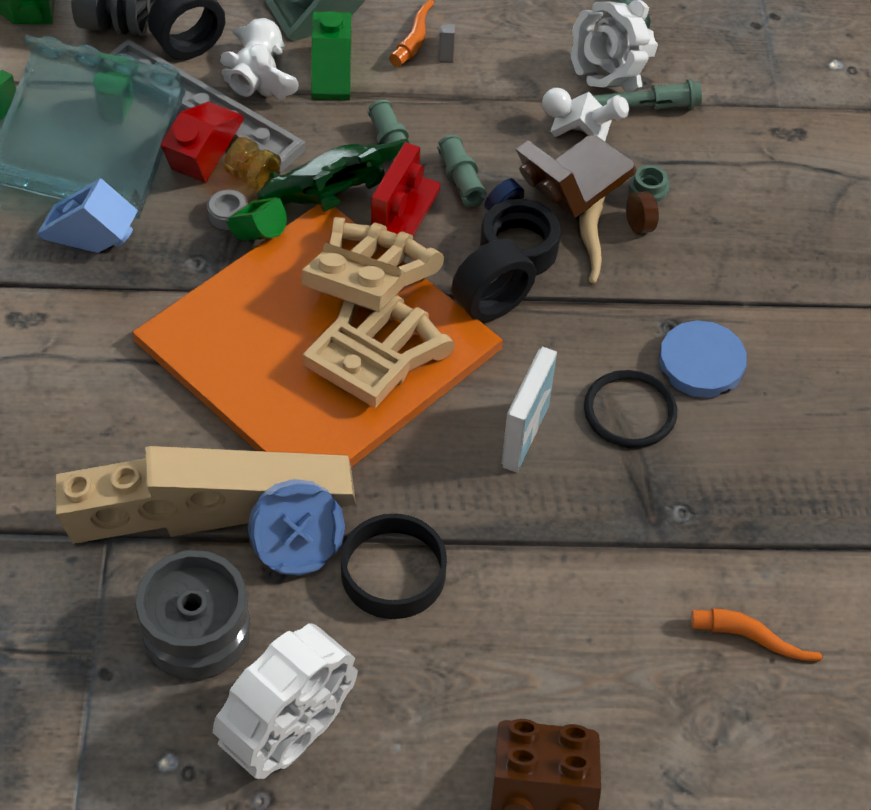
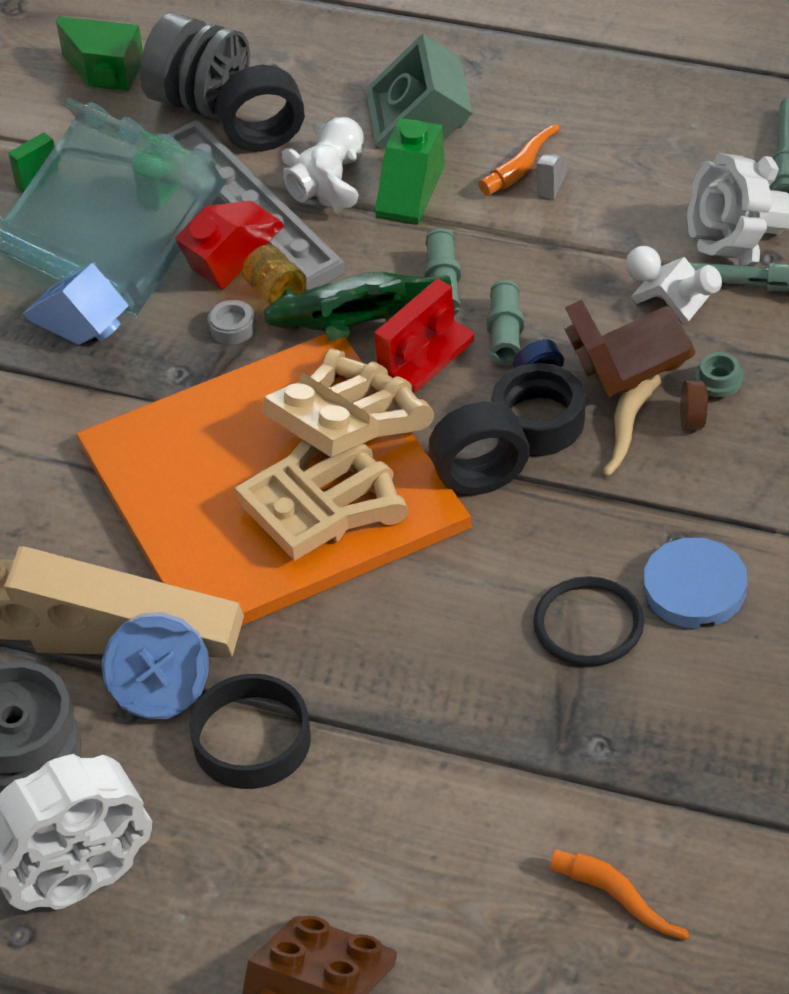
camera: 25 degrees right, 5 degrees down
(258, 220) = (253, 338): green brick -> none
(528, 409) = (455, 593): white tile -> none

